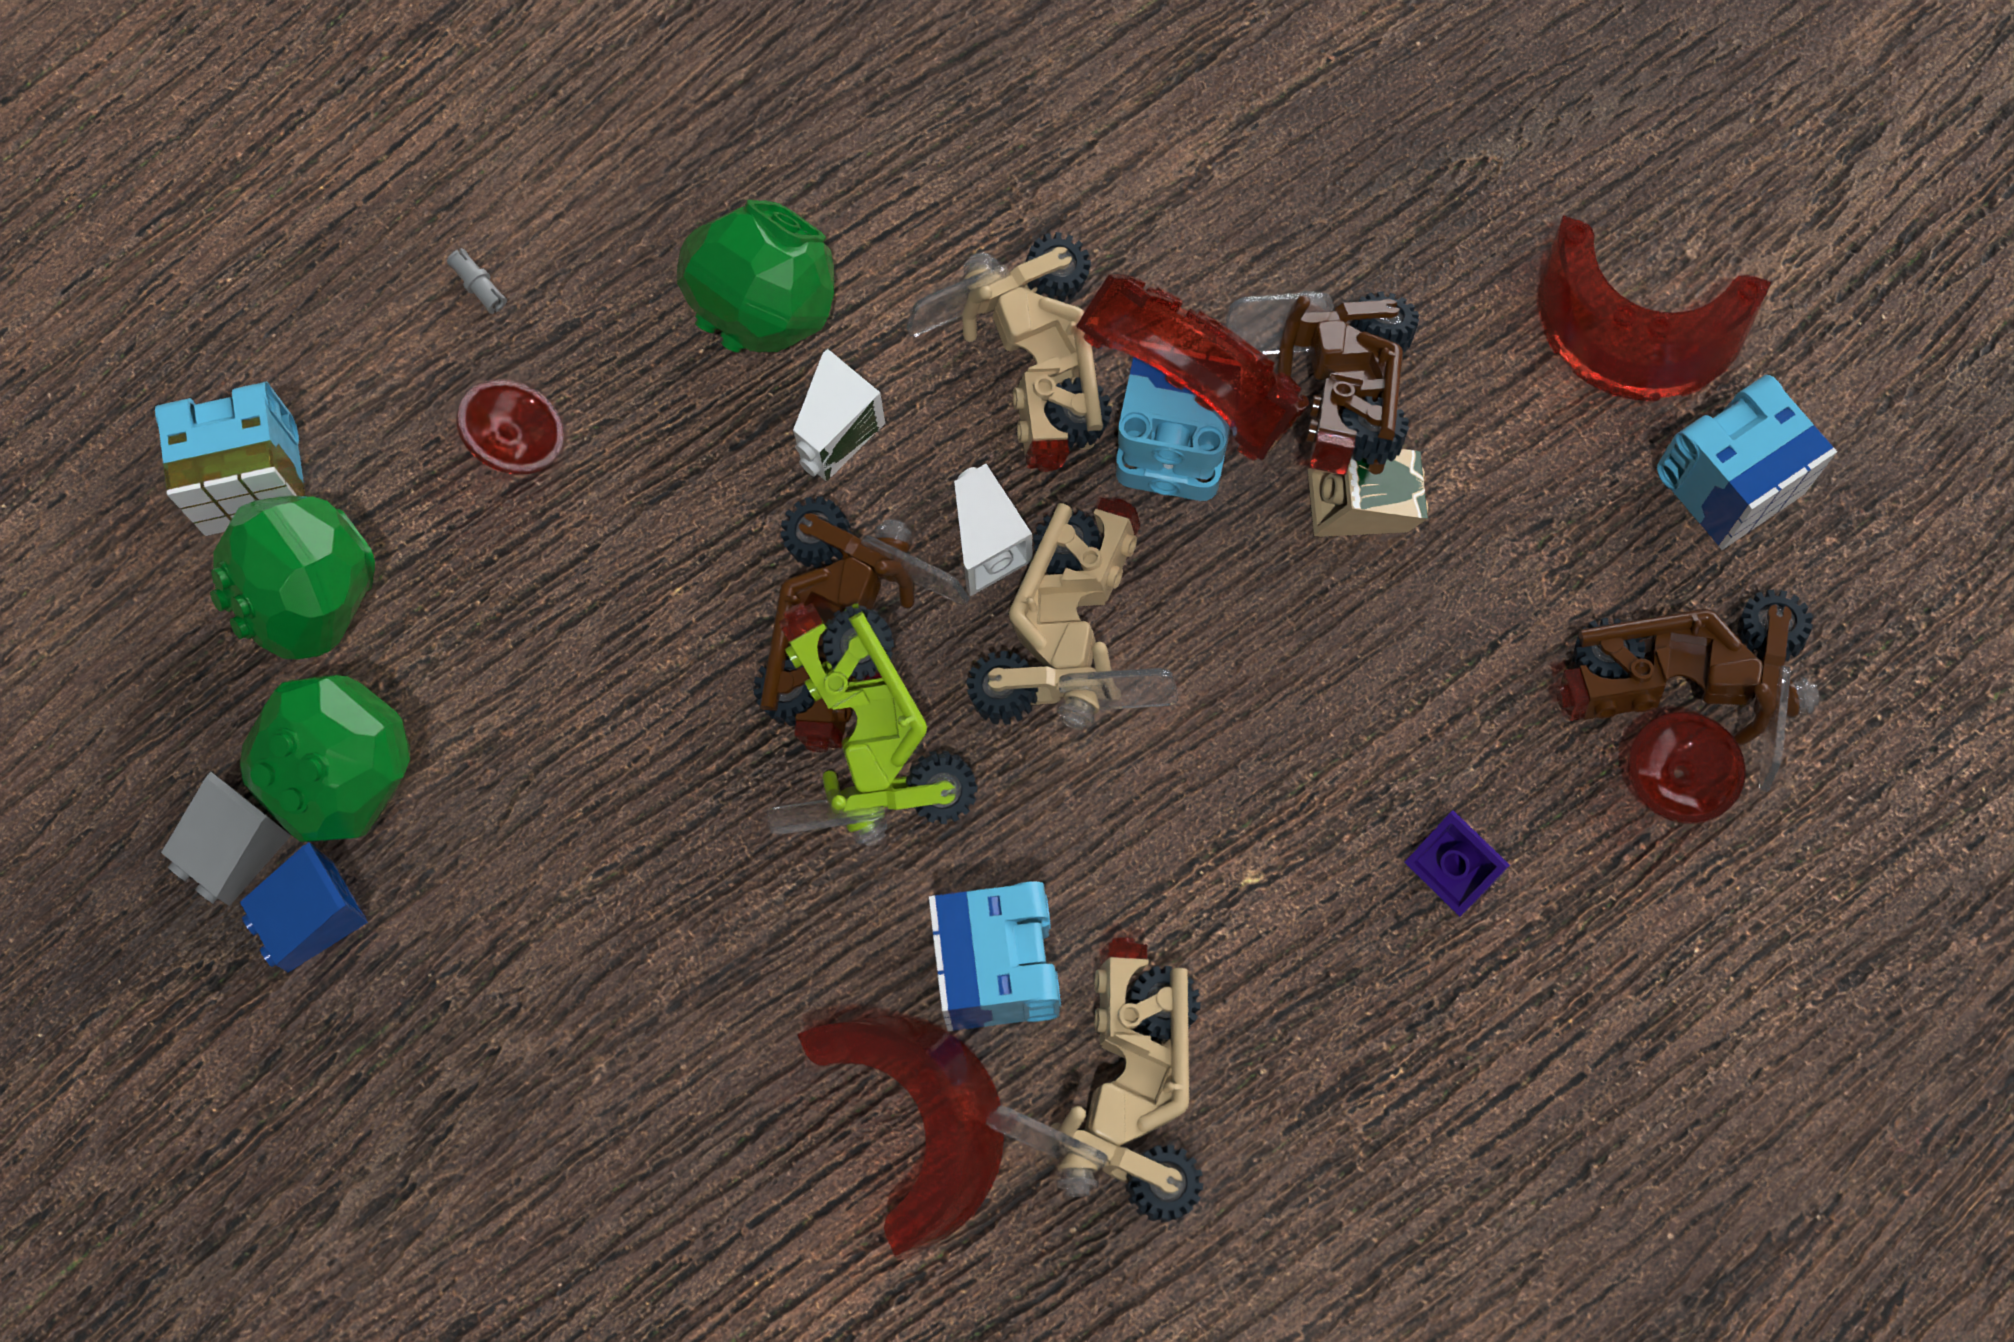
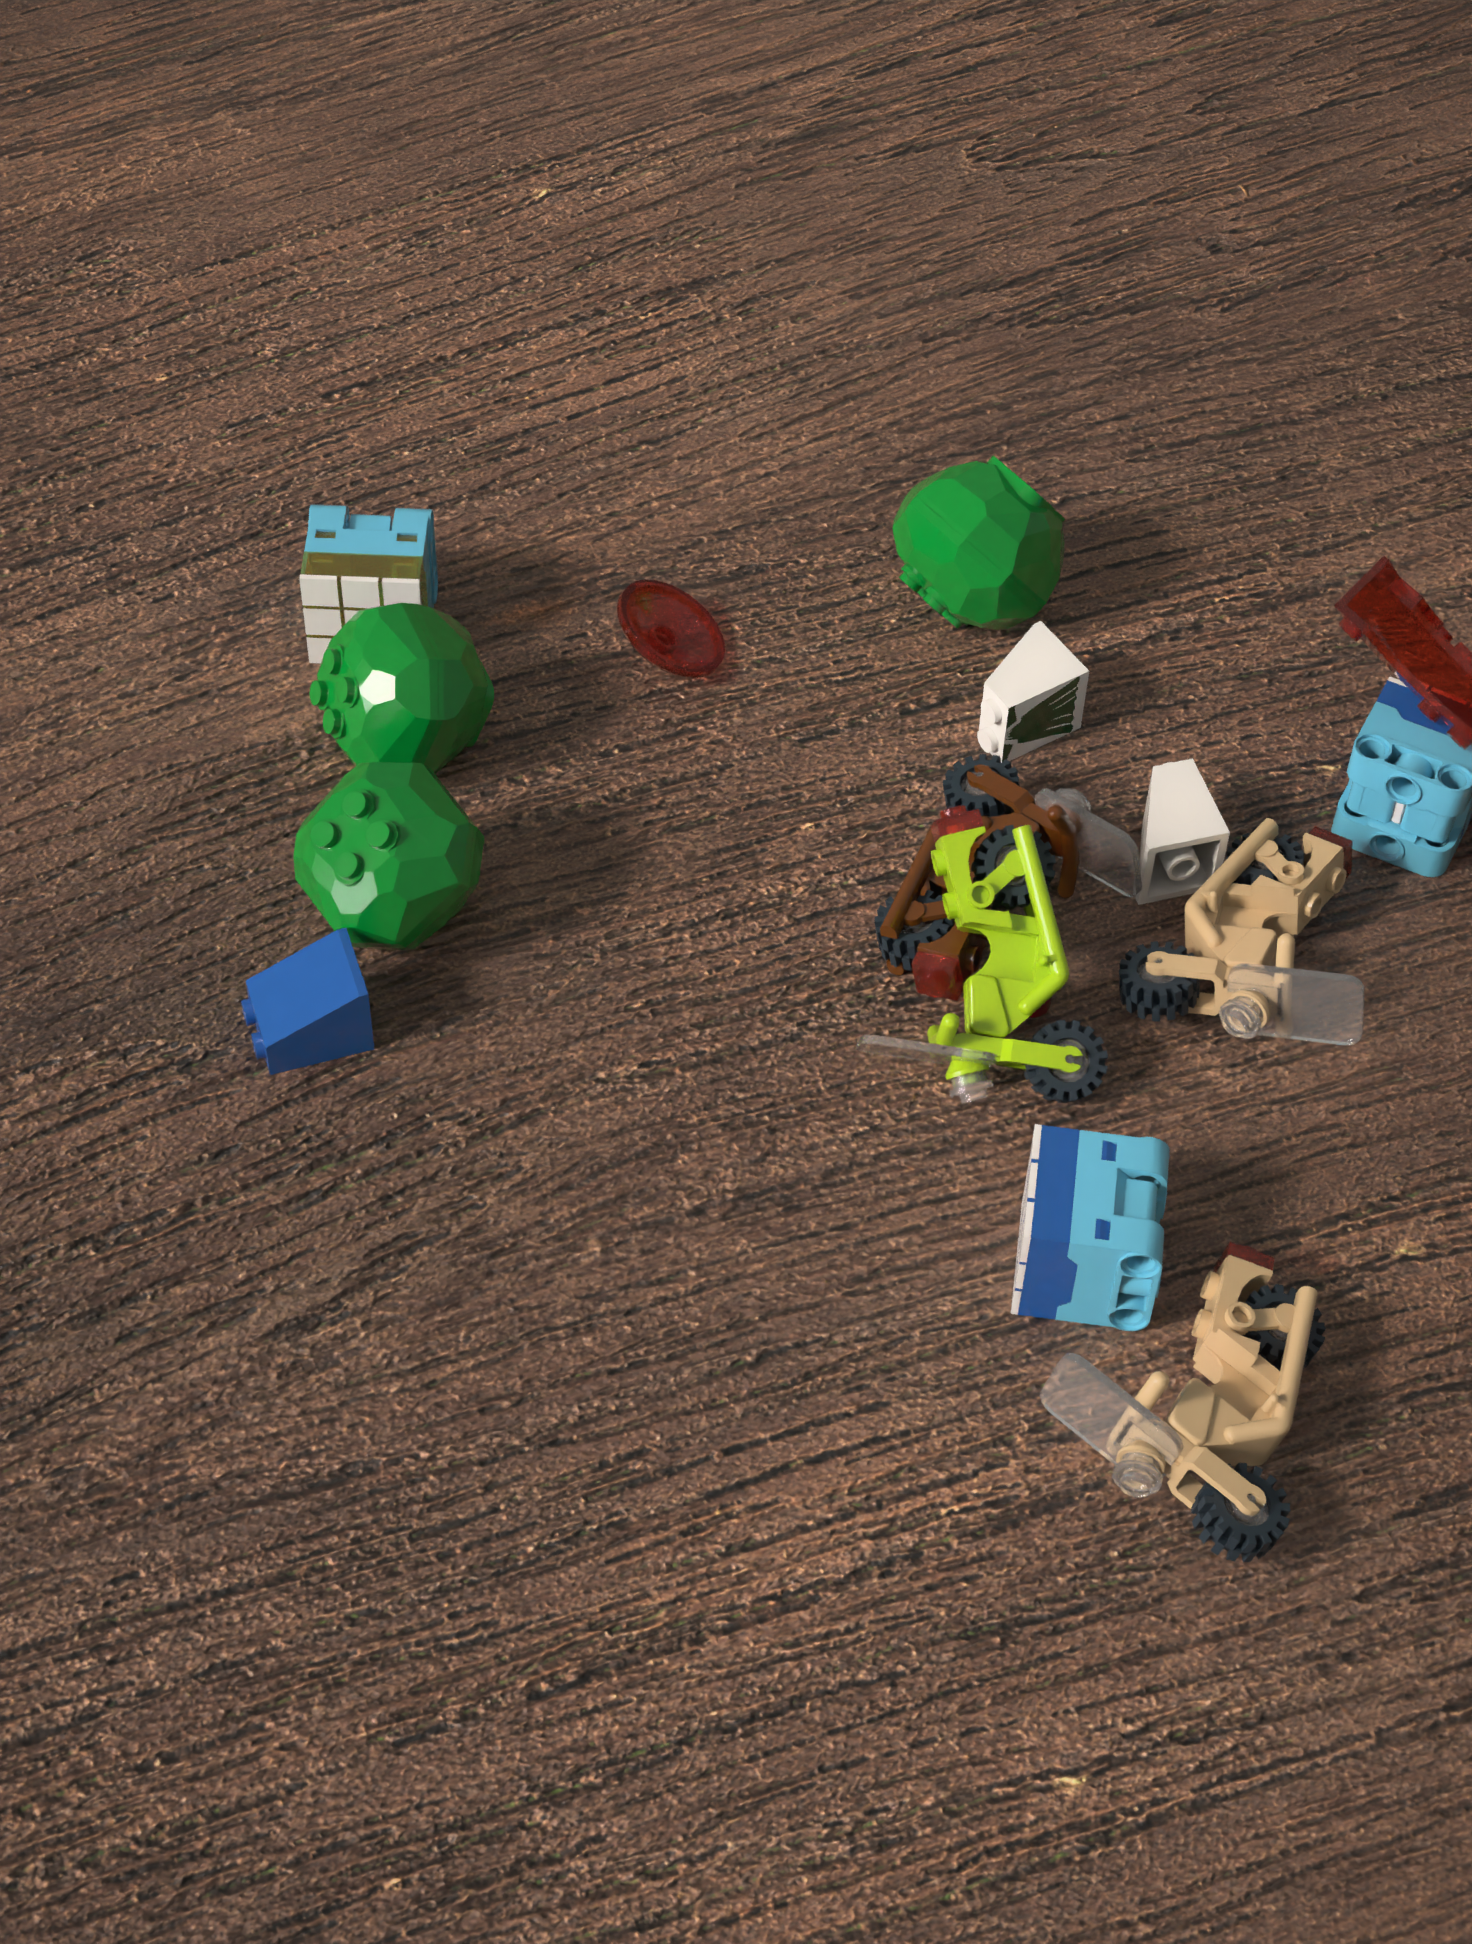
camera: 10 degrees right, 20 degrees down
(222, 841) = (245, 921): light grey slope -> none
(477, 281) = (669, 504): light grey pin -> none
(954, 1104) = (1000, 1424): clear red windscreen -> none
(1044, 330) = (1285, 647): tan piece -> none

